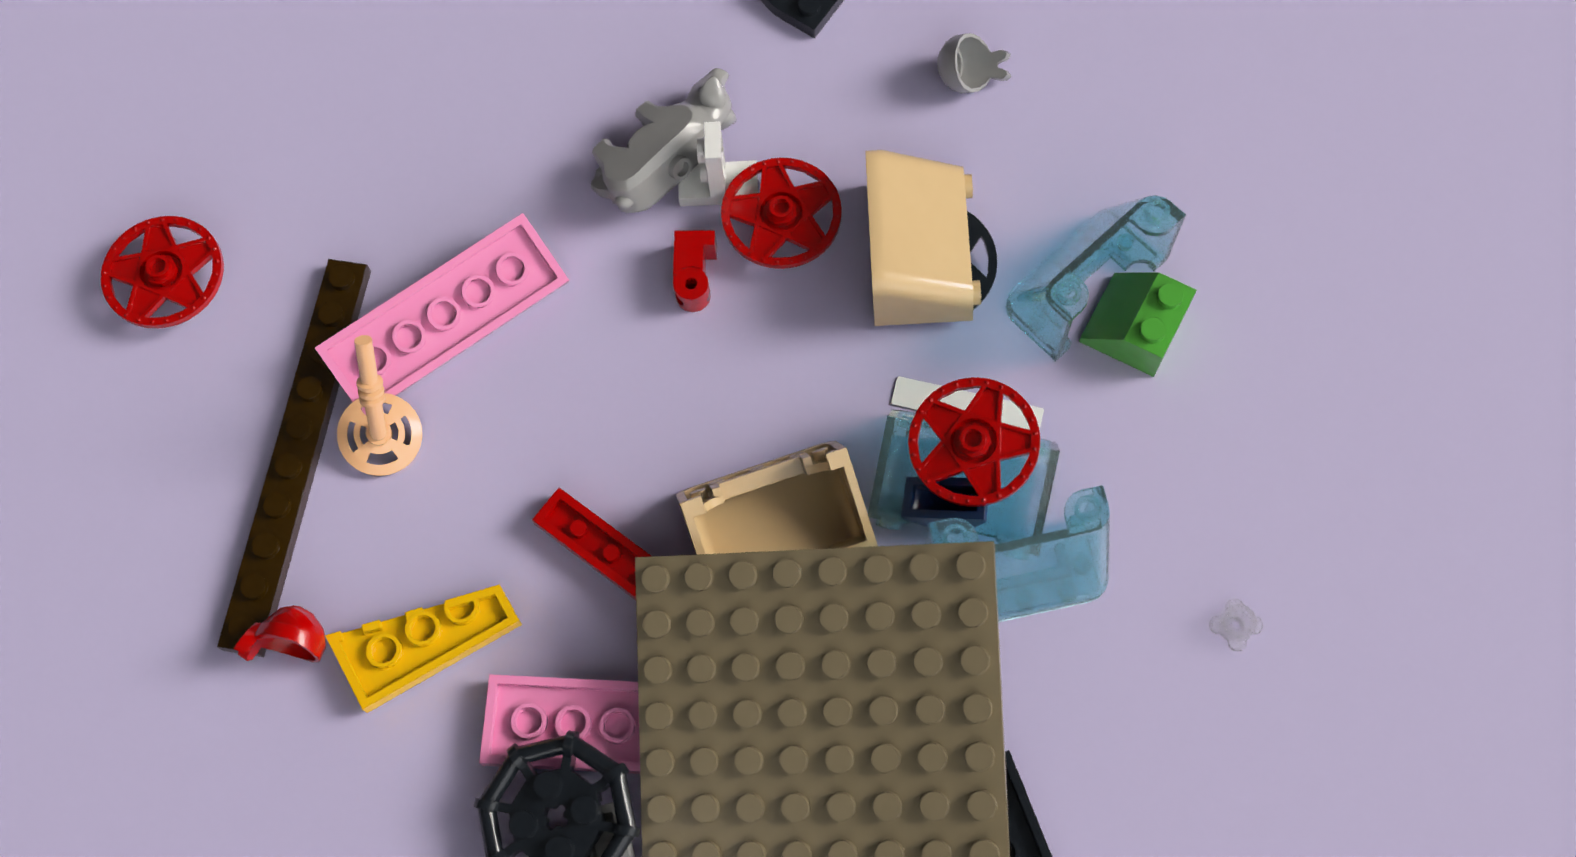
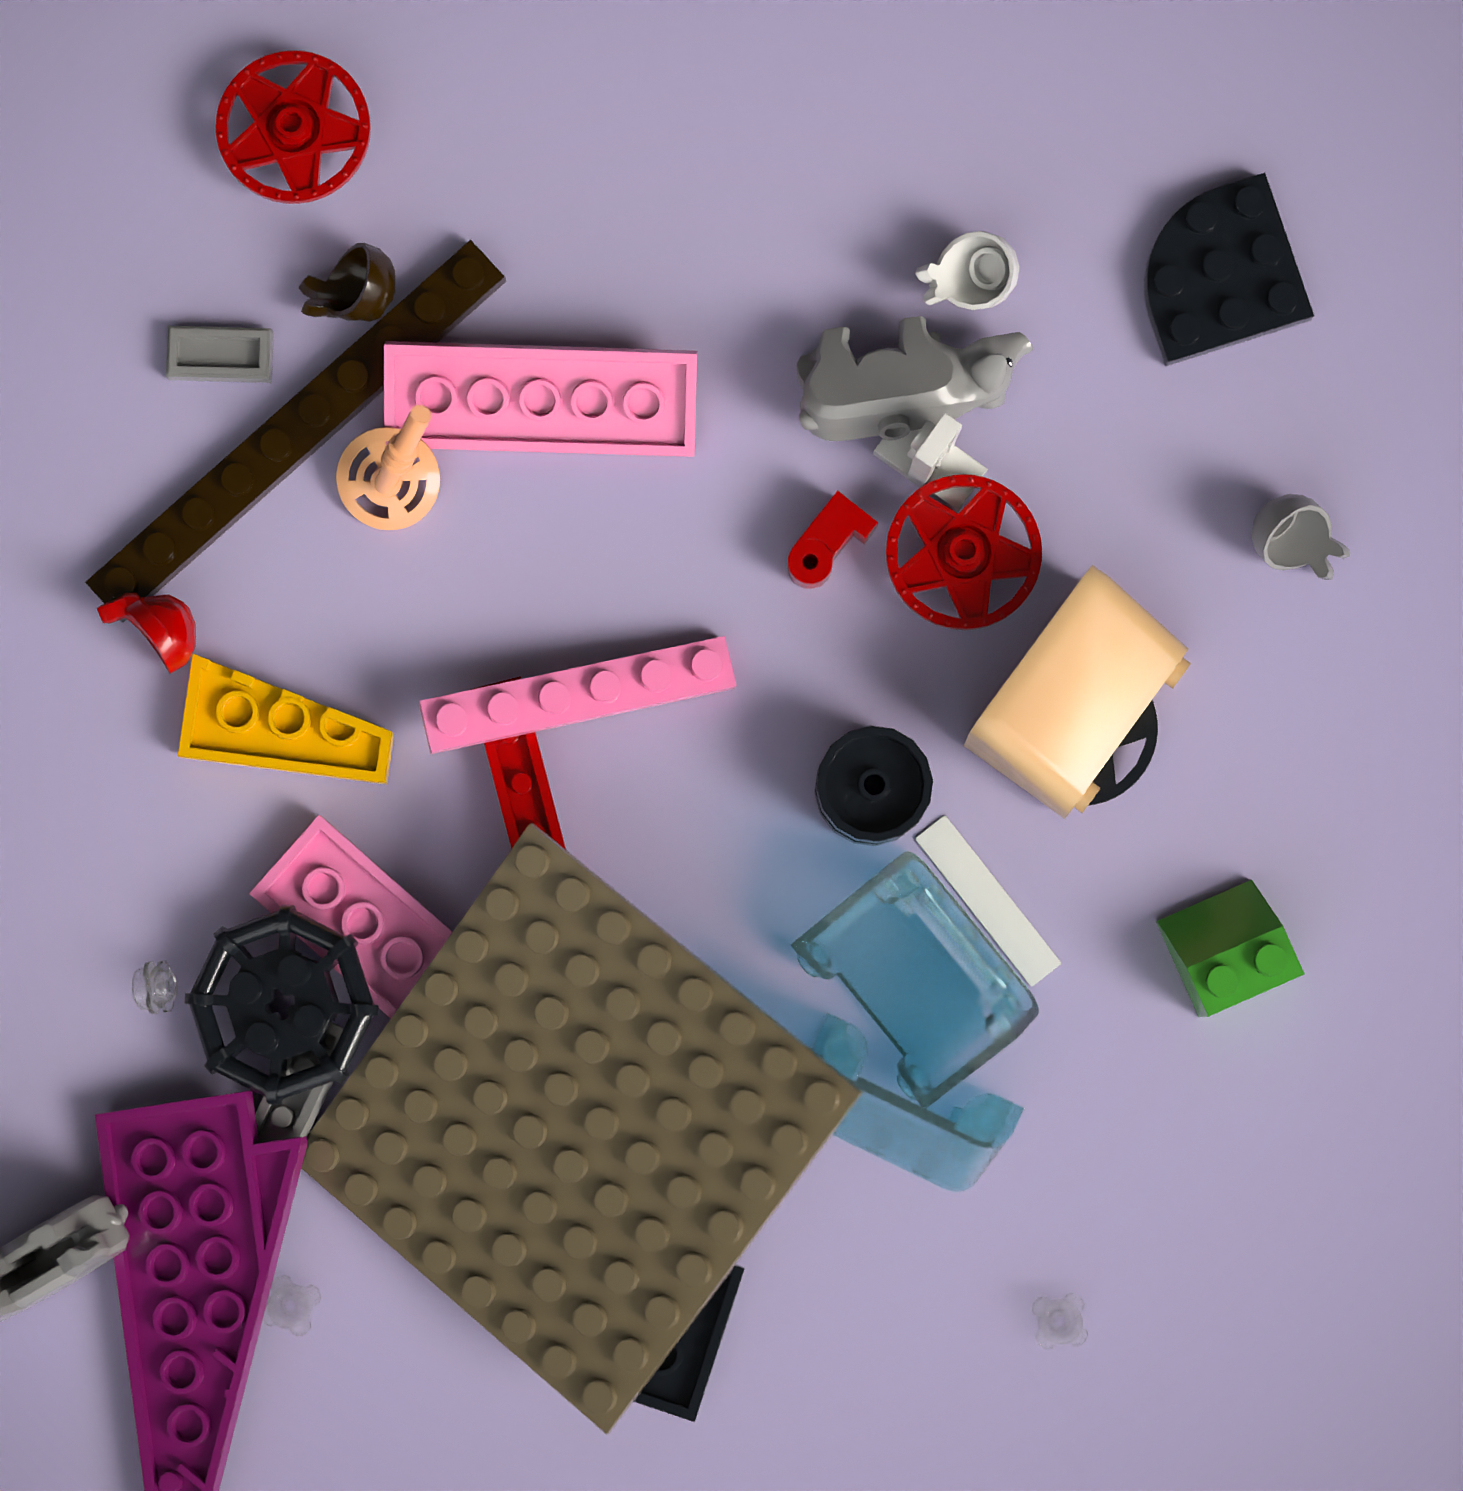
camera: 30 degrees right, 15 degrees up
(210, 442) = (219, 354): none -> light grey tile
(274, 335) = (356, 288): none -> dark brown piece
(602, 473) = (577, 695): none -> bright pink plate
(657, 57) = (972, 272): none -> white piece
(780, 506) = (710, 866): tan windscreen -> none
(839, 383) = (902, 775): none -> black wheel
(924, 506) = (876, 991): dark blue slope -> none
(974, 441) = (944, 962): red wheel -> none
(1056, 291) = (1154, 849): clear light blue windscreen -> none

